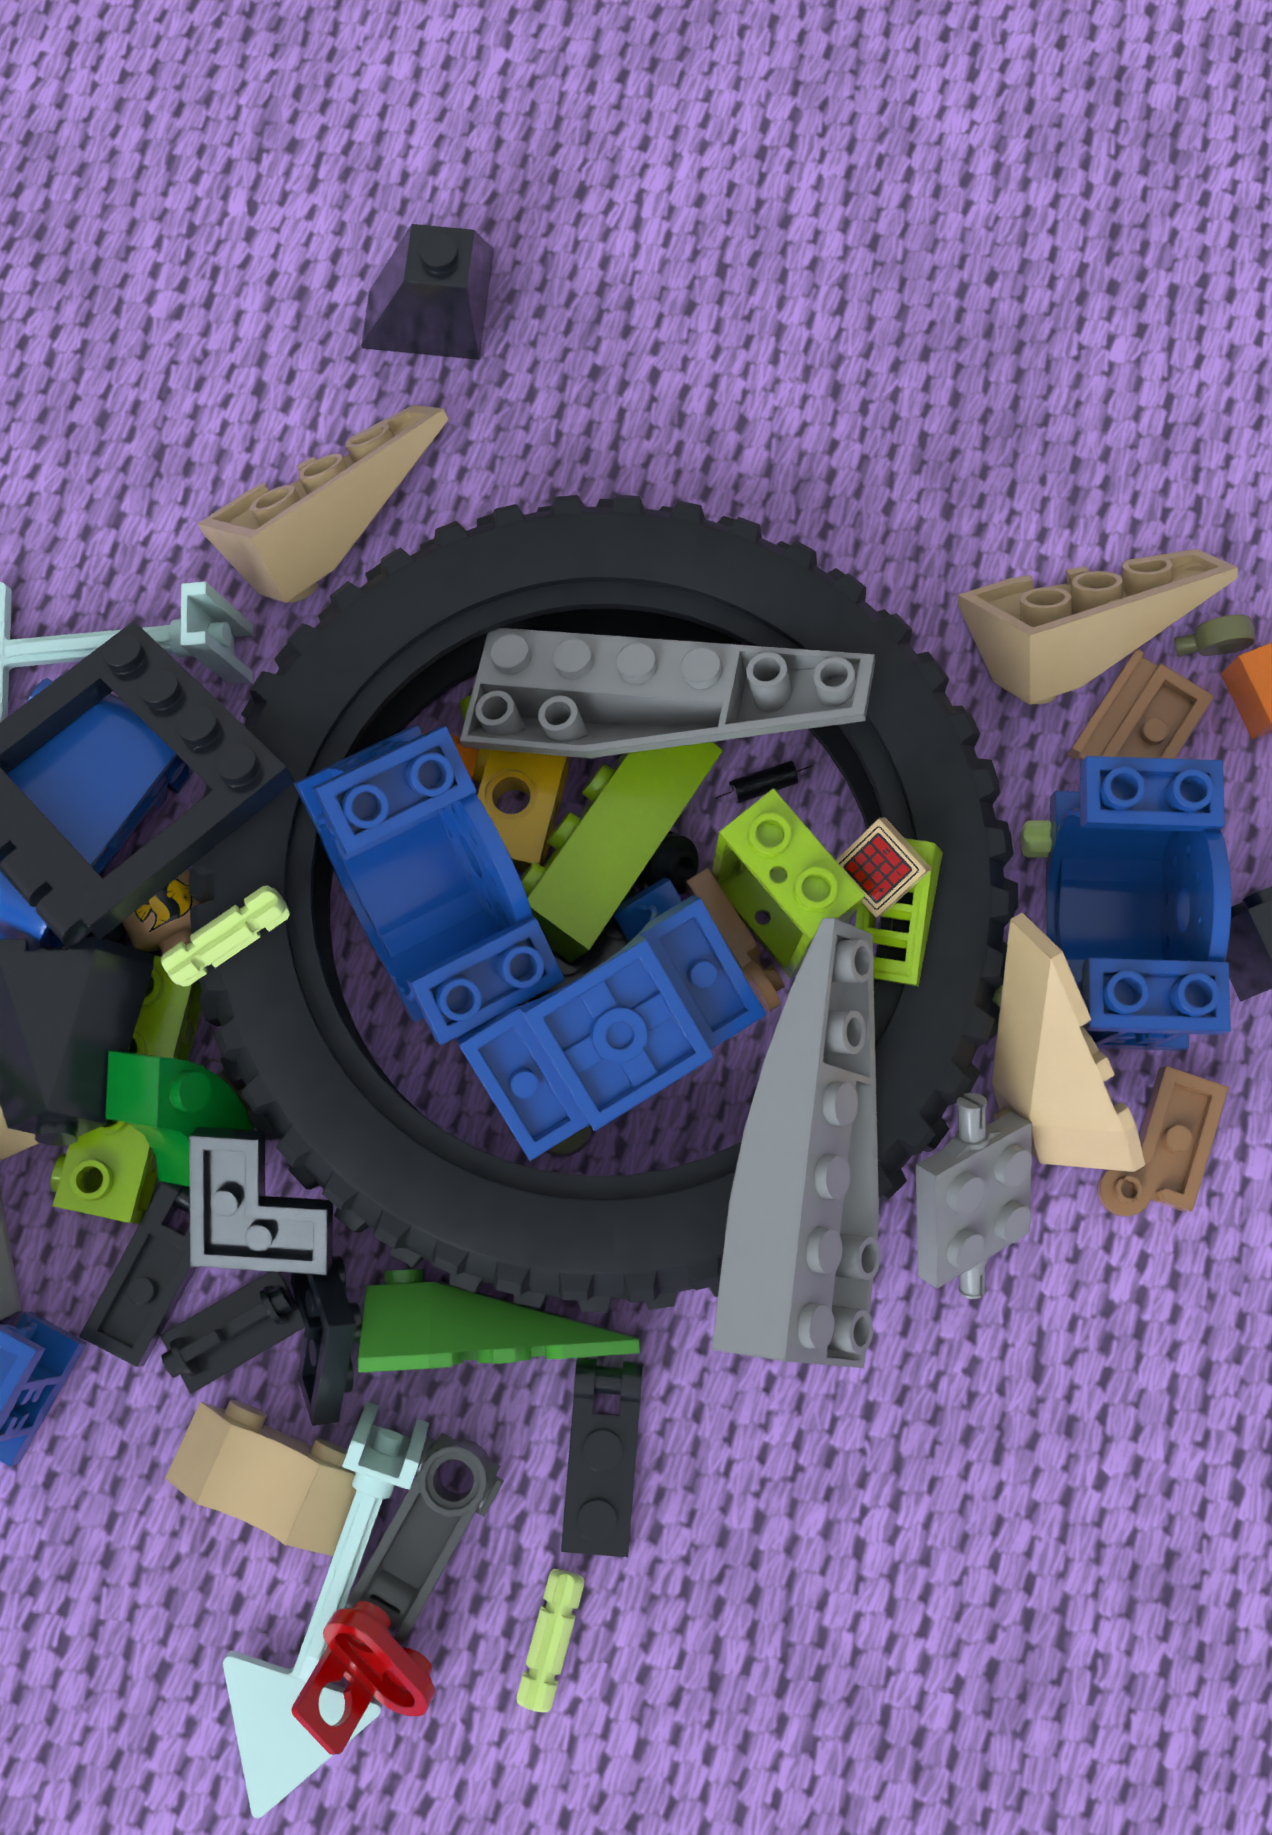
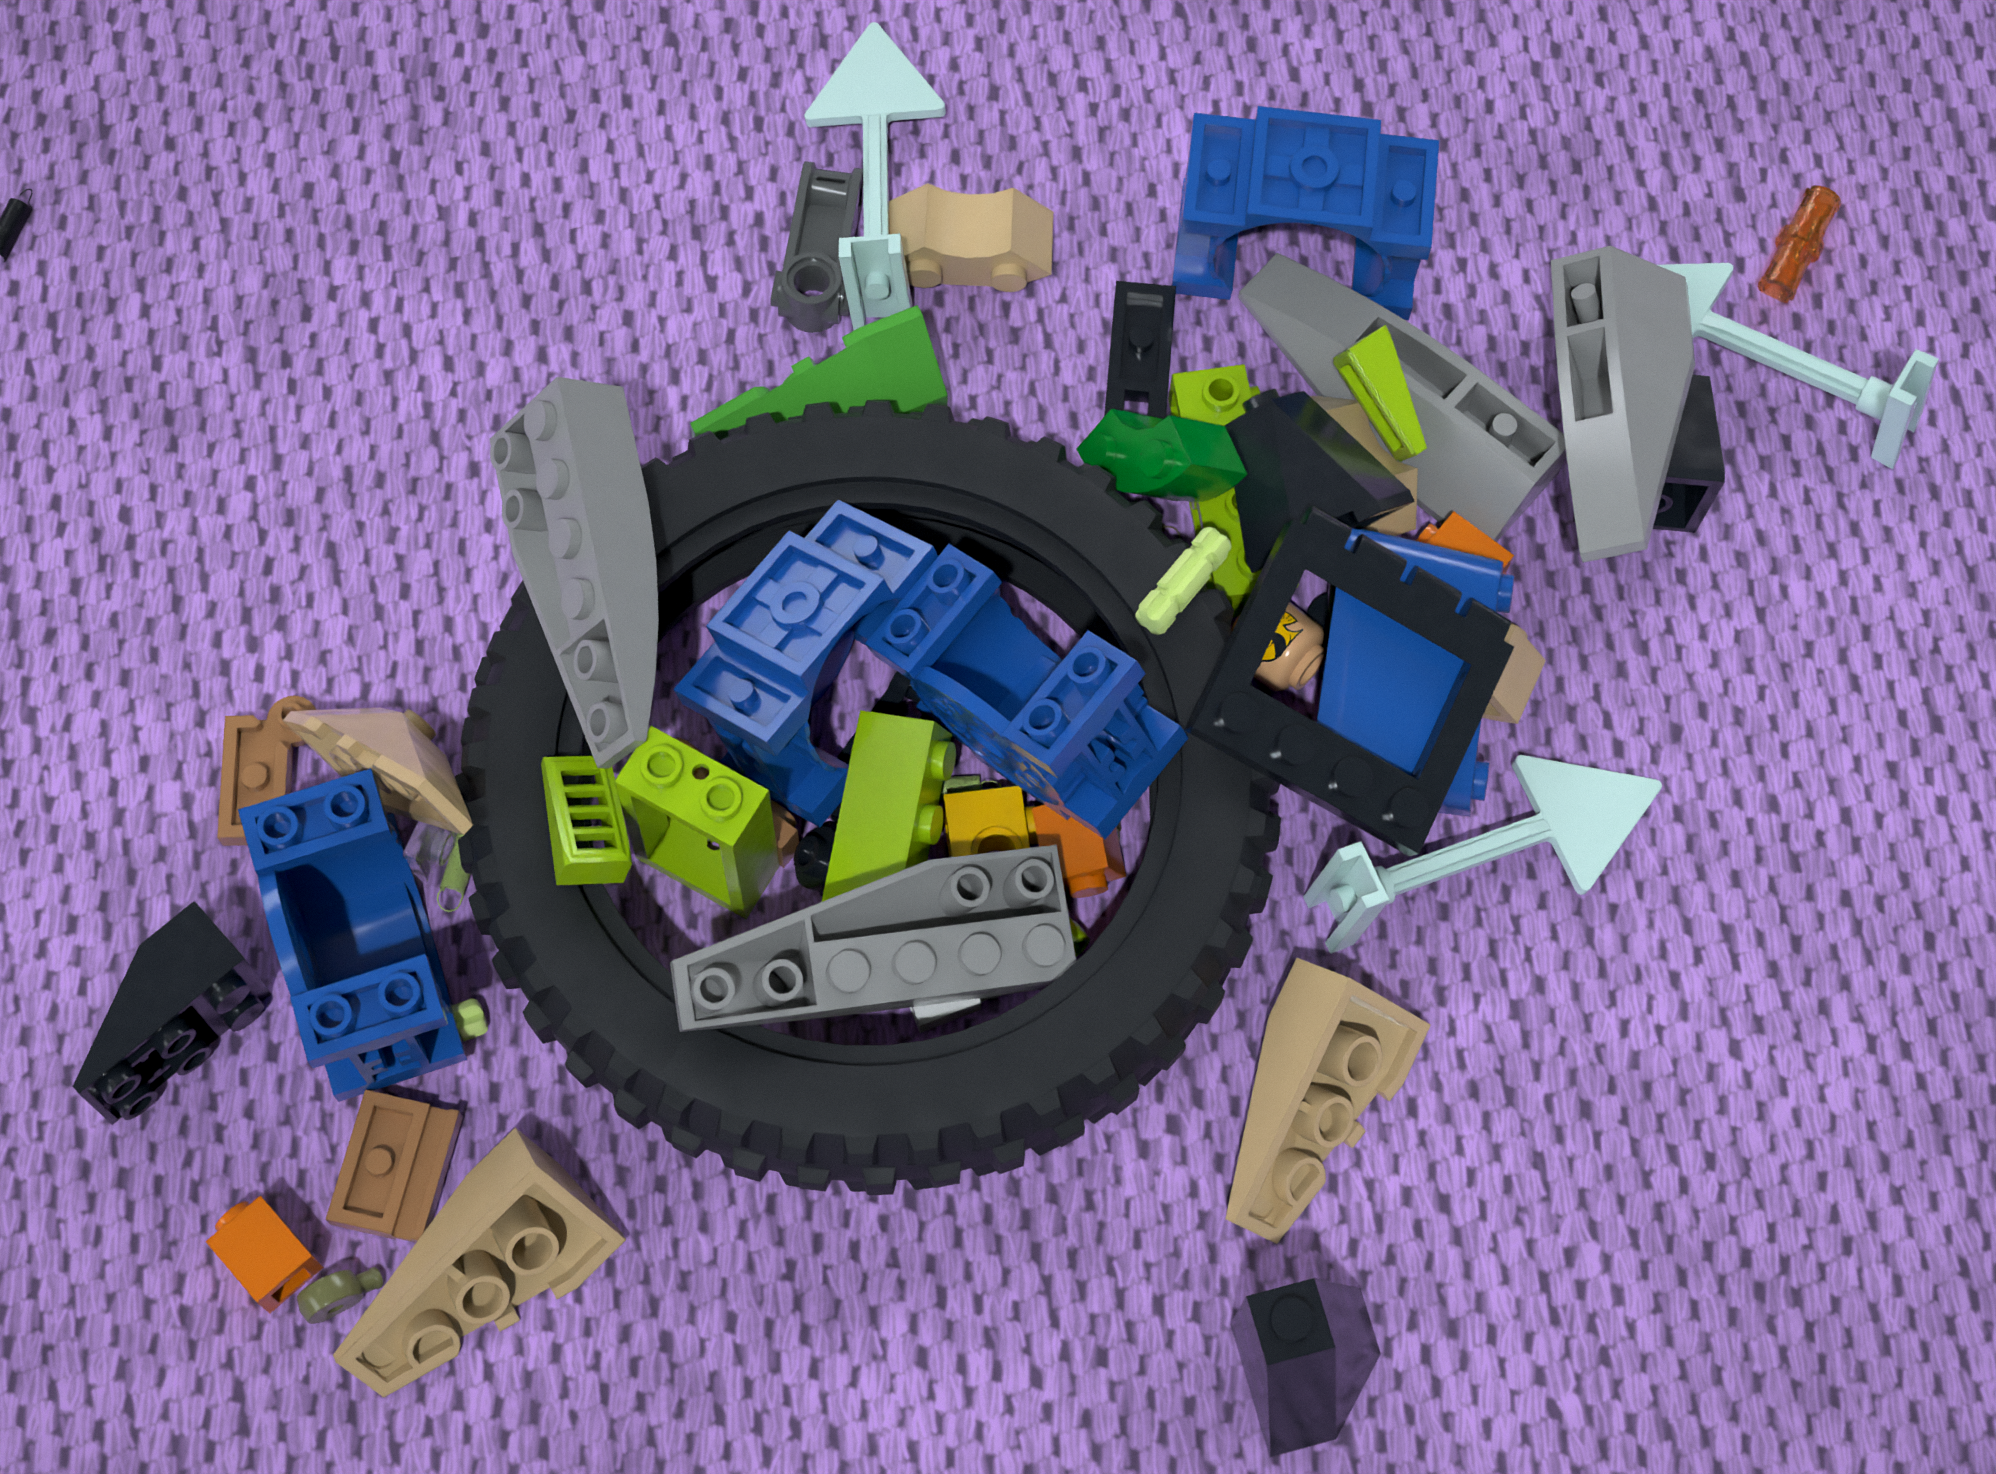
camera: 155 degrees right, 10 degrees down
(231, 1331) = (1052, 339): black hinge -> none
(238, 1224) = (1067, 387): plate -> none
(329, 1333) = (963, 349): black plate -> none
(373, 1666) = (835, 143): red bracket -> none
(550, 1640) = (686, 211): yellowish green axle -> none
(601, 1461) = (691, 344): black plate -> none
(883, 866) = (609, 827): tile -> none
(973, 1197) = (433, 639): light grey plate -> none

